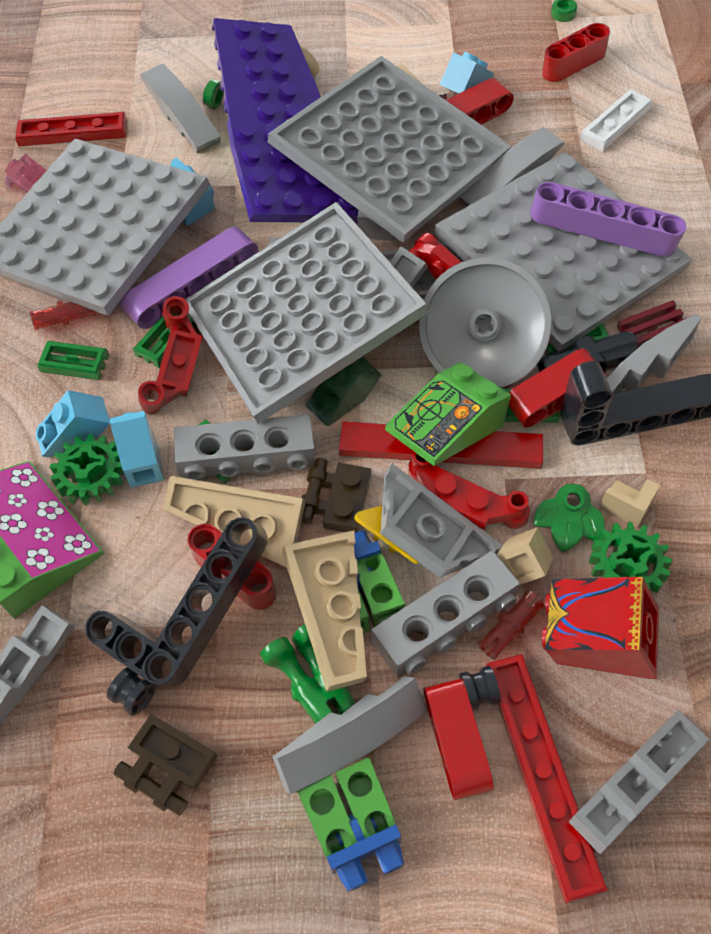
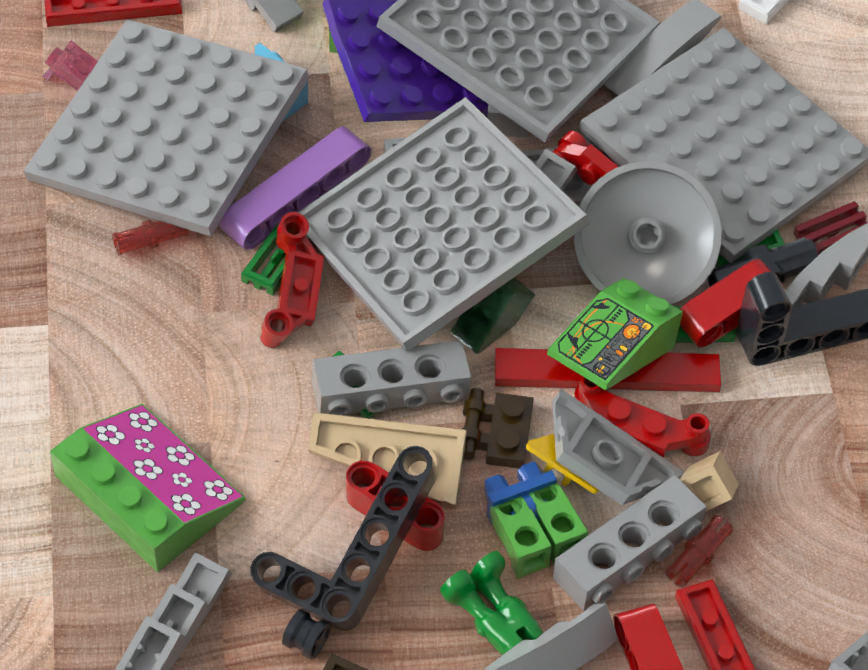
camera: 10 degrees left, 5 degrees down
(70, 363) = (170, 294): green tile -> none
(71, 417) = (188, 361): medium azure slope -> none
(87, 468) = (216, 409): green gear -> none
(137, 448) = (273, 385): medium azure slope -> none
(328, 597) = (508, 526): tan wing -> none
(481, 687) = (675, 611): black wheel -> none
(567, 521) = (754, 445): green plate -> none
(603, 625) = (794, 545): red slope -> none
(607, 219) = (775, 110): medium lavender beam -> none
(628, 502) = (814, 423): tan panel -> none
(631, 555) = (819, 481): green gear -> none

